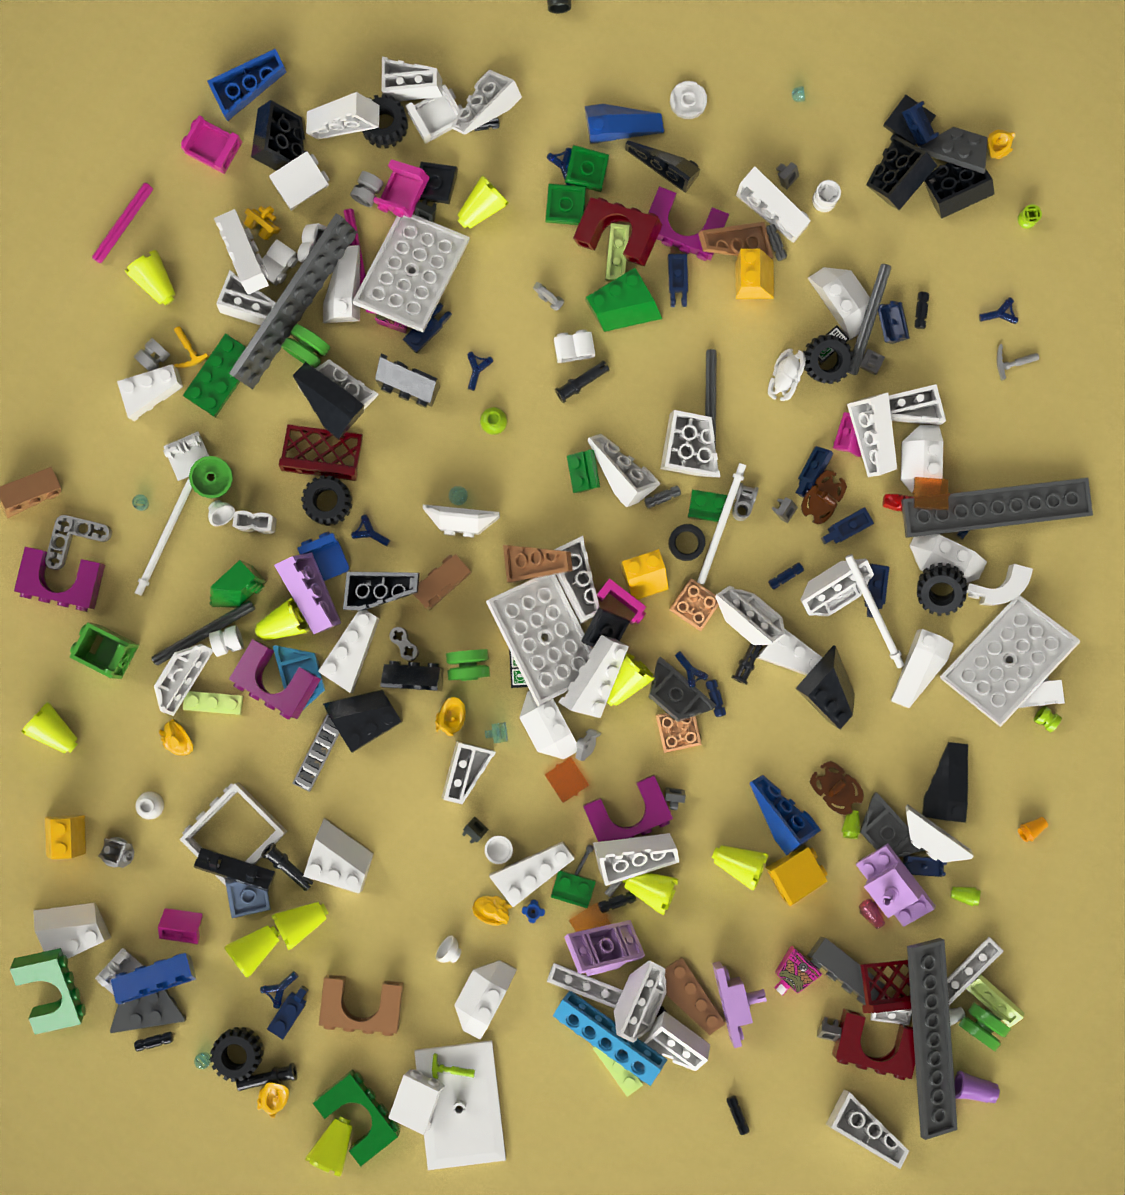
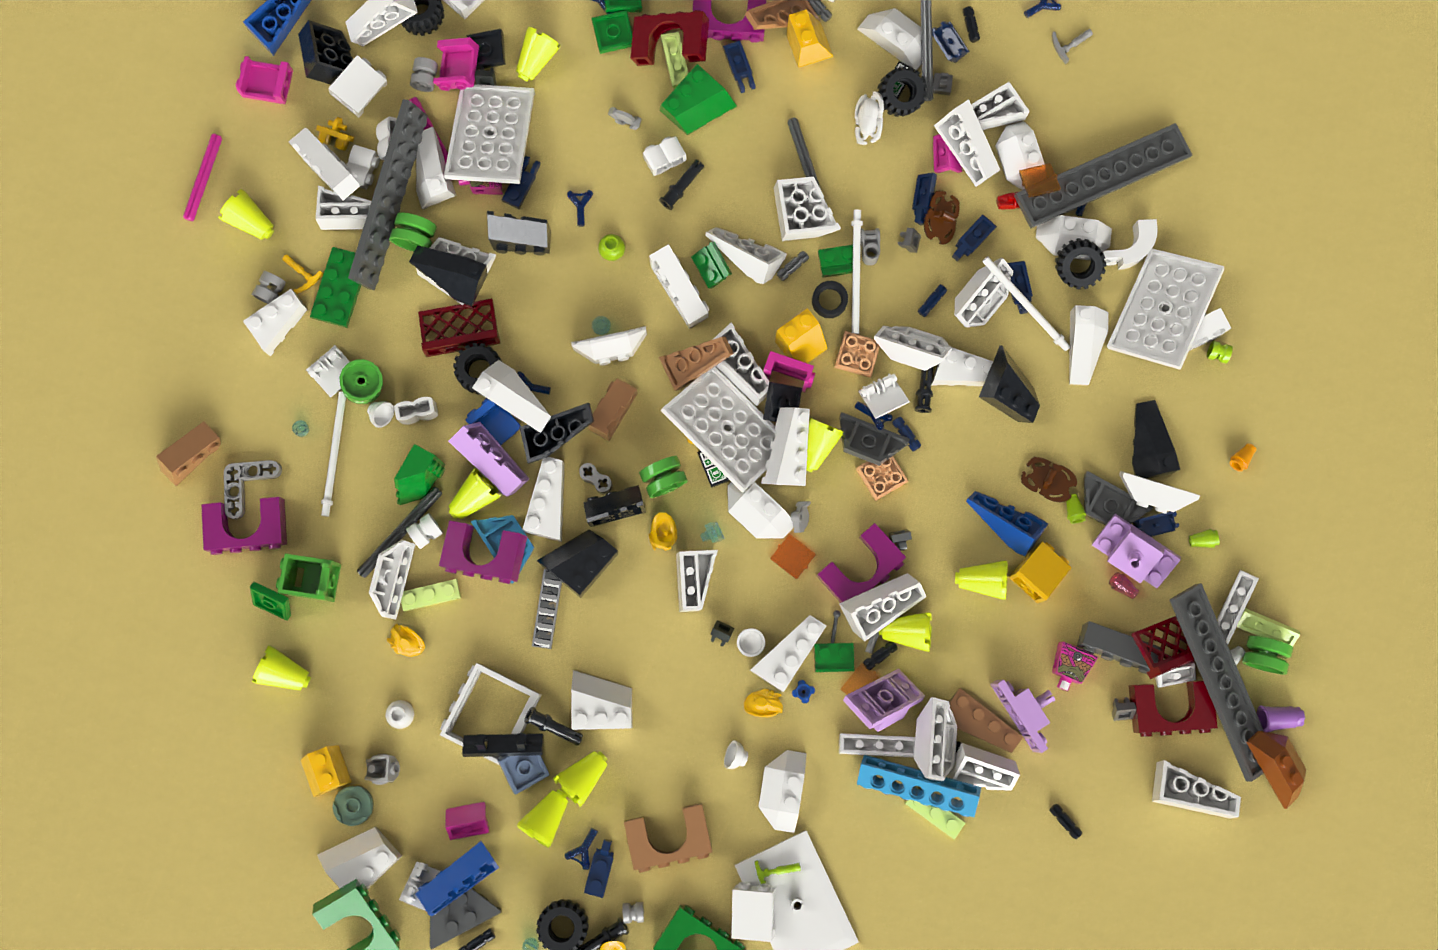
camera: 20 degrees left, 5 degrees down
(61, 660) = (270, 601): none -> green plate
(80, 876) = (353, 805): none -> sand green tile
(306, 1063) = (633, 912): none -> light grey wheel
(346, 535) = (507, 390): none -> white wedge
(544, 483) = (678, 286): none -> white wedge
(706, 655) = (883, 396): none -> white hinge
(958, 1132) = (1279, 764): none -> dark orange wedge

